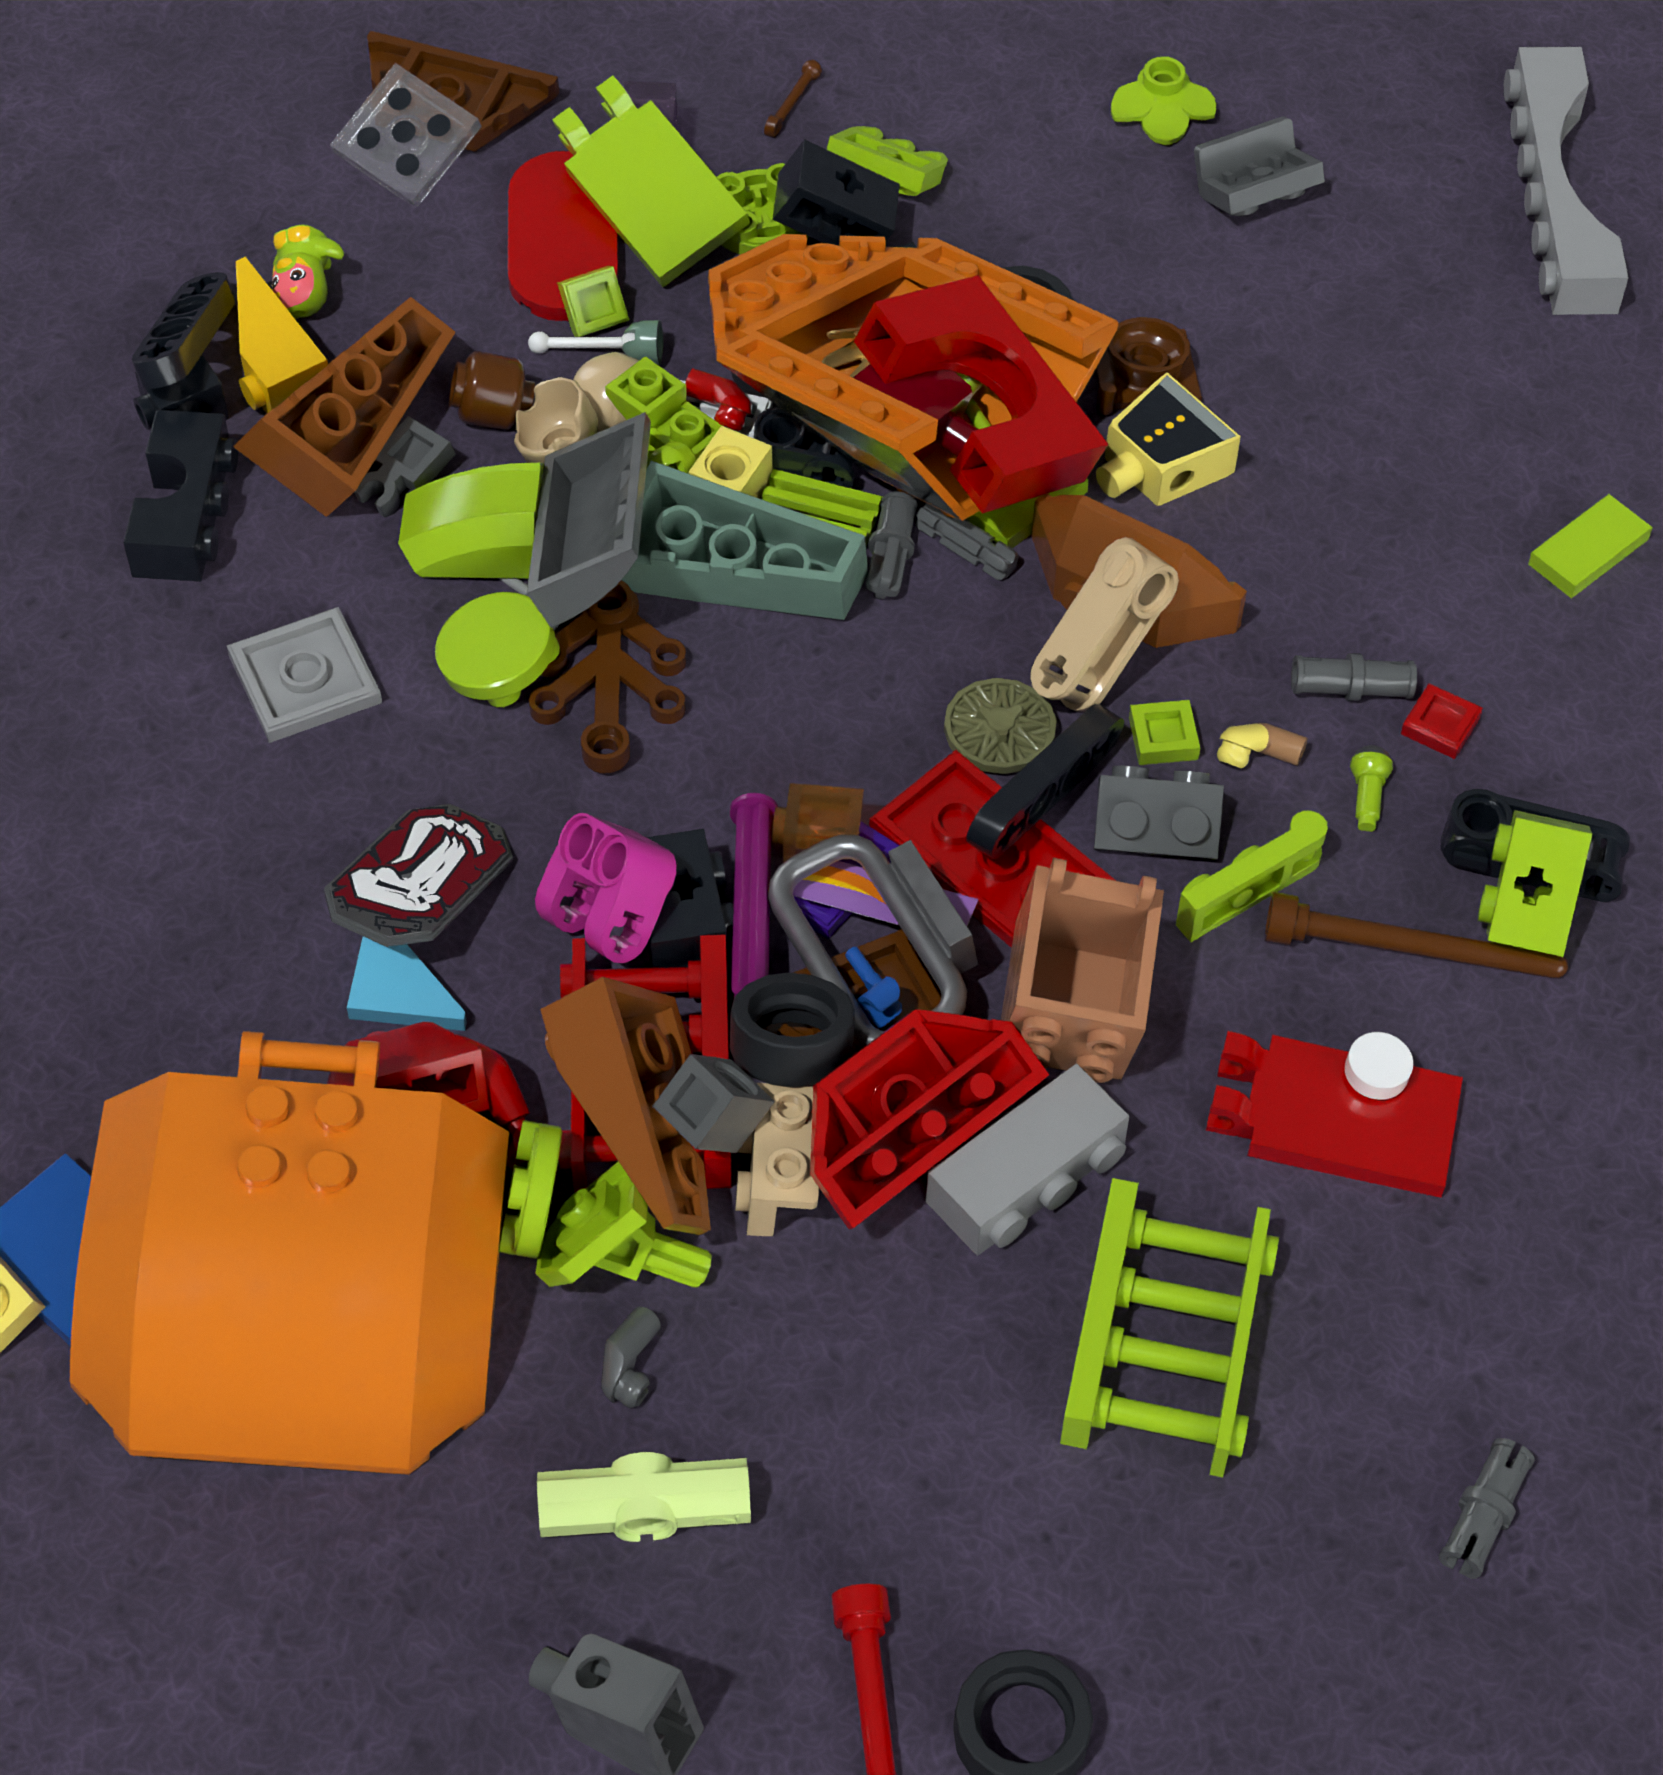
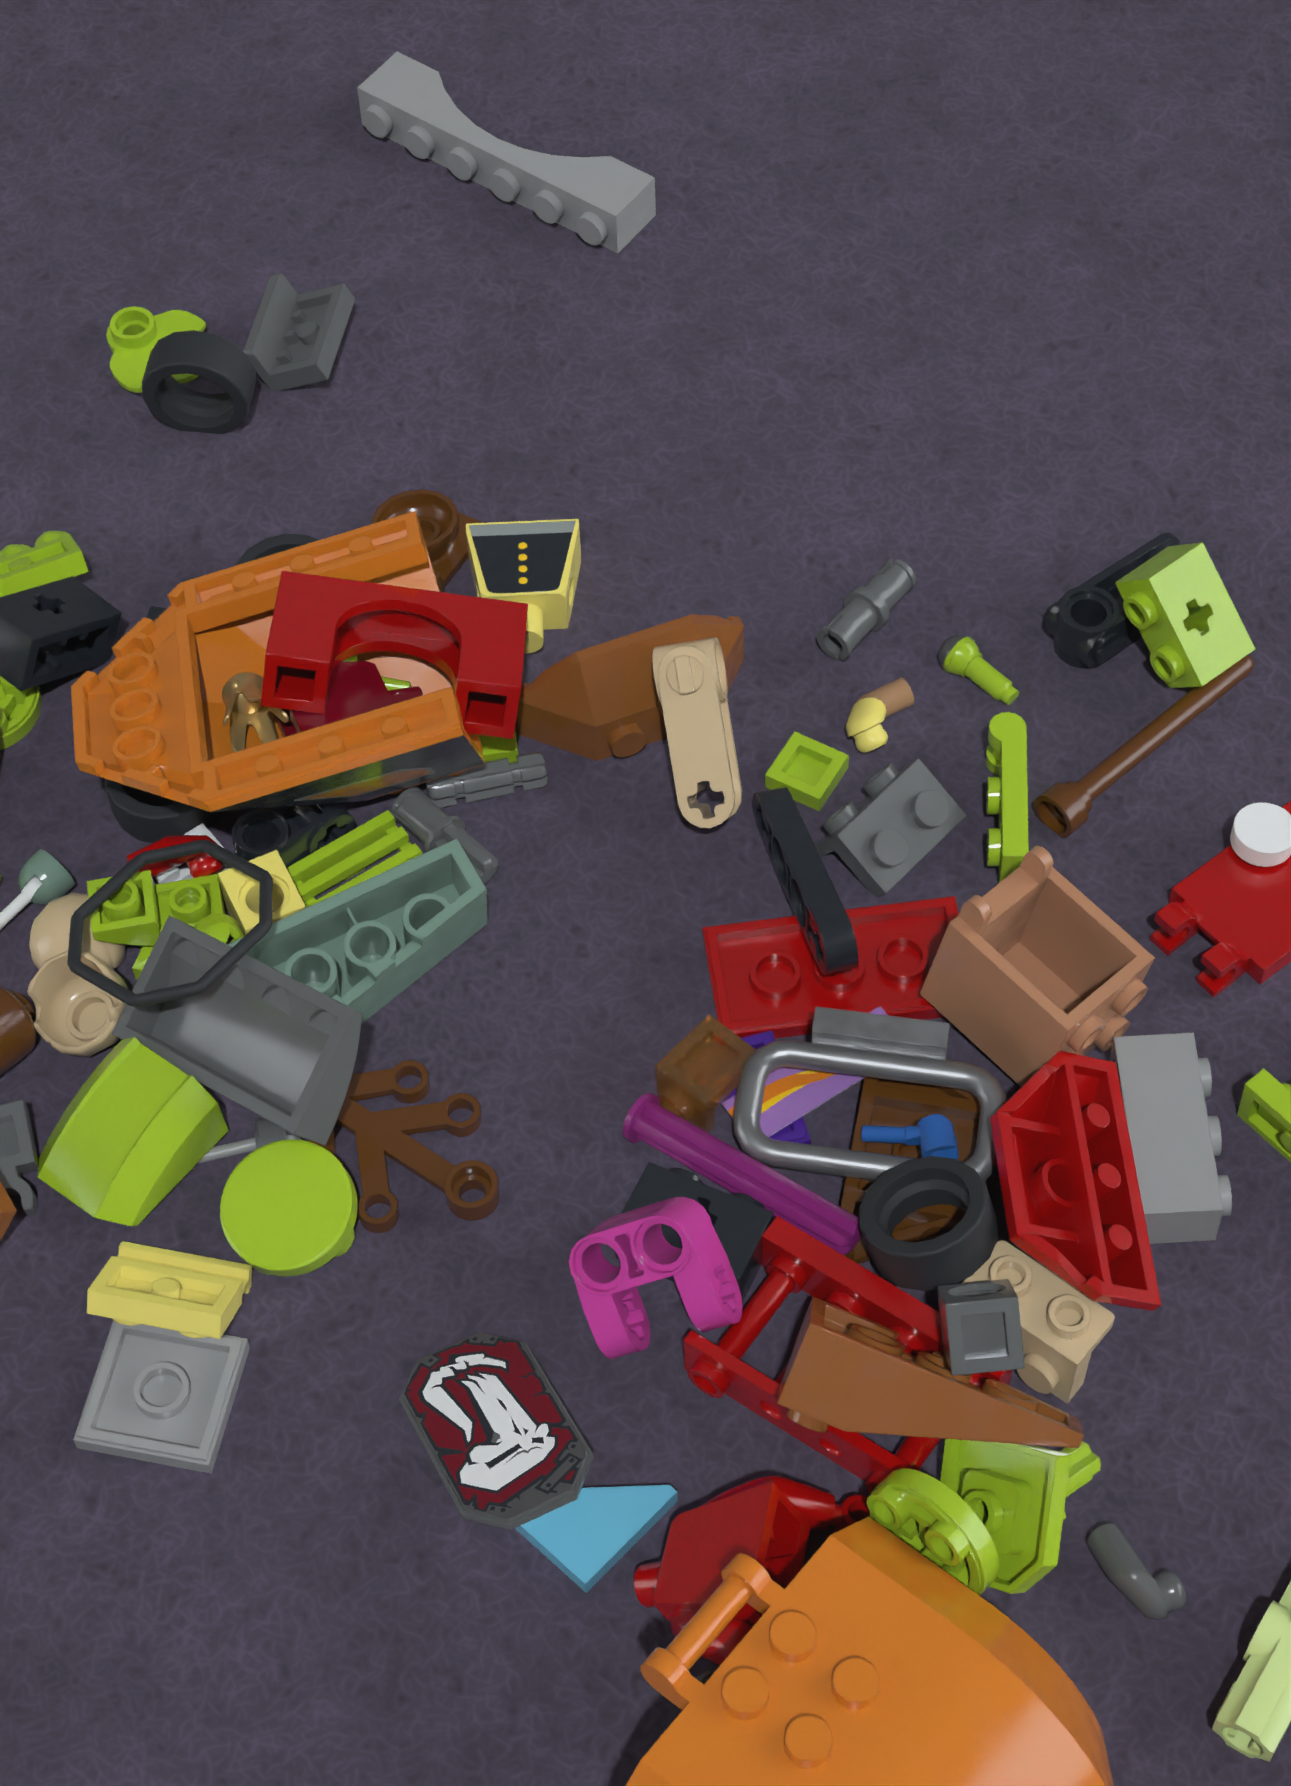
camera: 50 degrees left, 0 degrees up
(376, 621) = (169, 1290): none -> light yellow plate
(635, 460) = (217, 970): none -> black piece
(999, 724) = (702, 880): olive wheel -> none
(1141, 140) = (203, 356): none -> black tyre
(1441, 721) = (952, 582): red tile -> none
(1590, 546) = (868, 380): lime tile -> none

